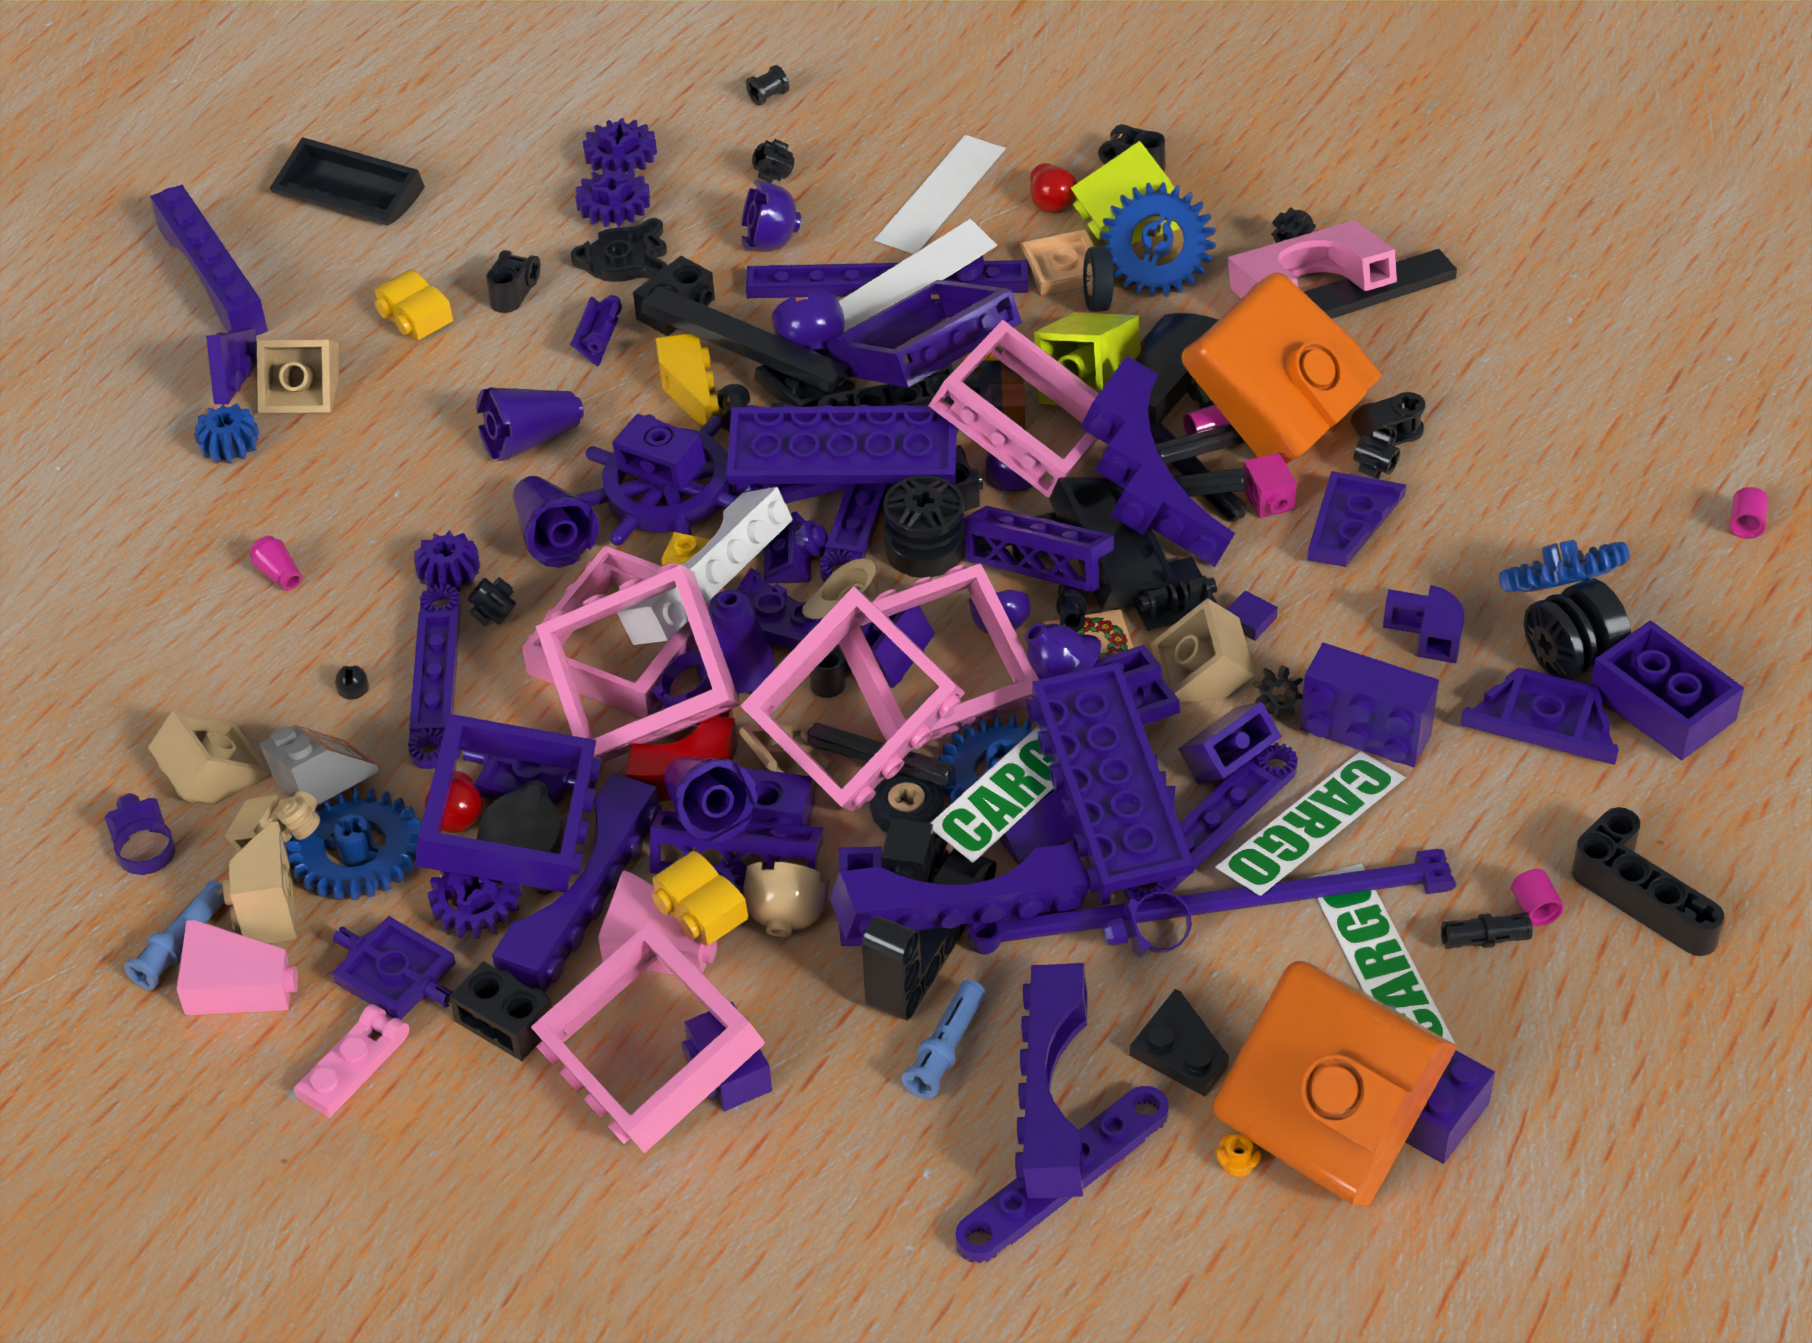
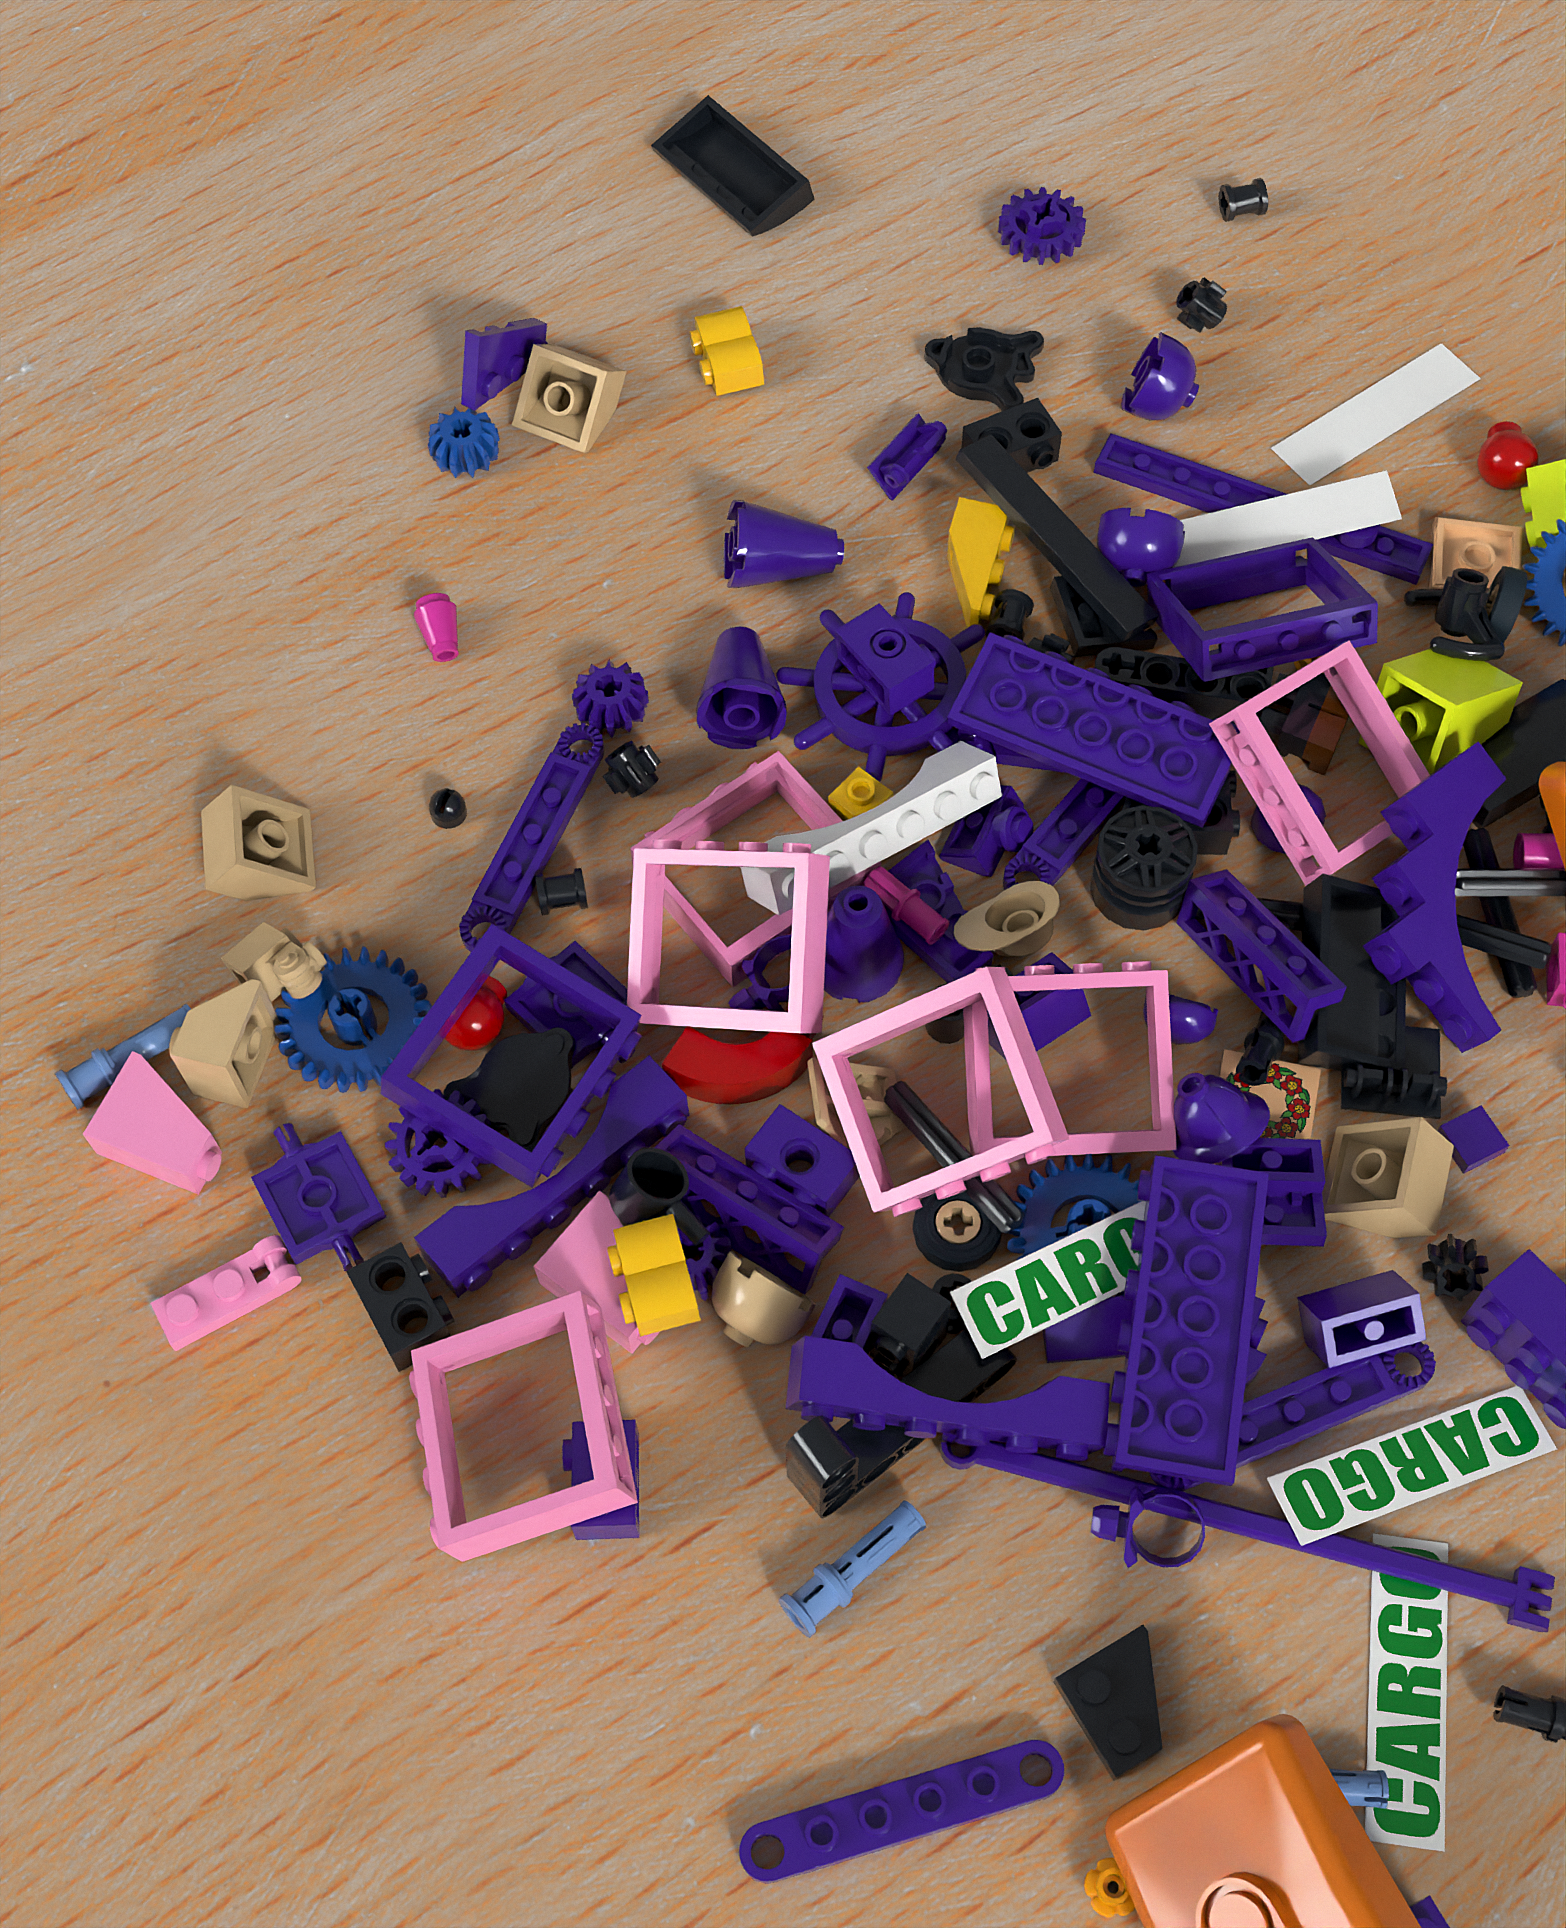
camera: 25 degrees right, 15 degrees up
(137, 816) = (150, 888): dark purple piece -> none
(220, 275) = (542, 220): dark purple arch -> none
(314, 762) = (355, 905): light grey slope -> none
(479, 699) = (561, 891): none -> black bush
(511, 280) = (846, 356): black piece -> none
(612, 197) = (1004, 288): dark purple gear -> none
(661, 845) = (653, 1188): none -> black piece
(710, 796) = (723, 1146): dark purple cone -> none
(774, 612) = (907, 905): none -> dark pink axle
(1052, 1145) = (992, 1595): dark purple arch -> none
(1070, 289) = (1461, 613): none -> black piece

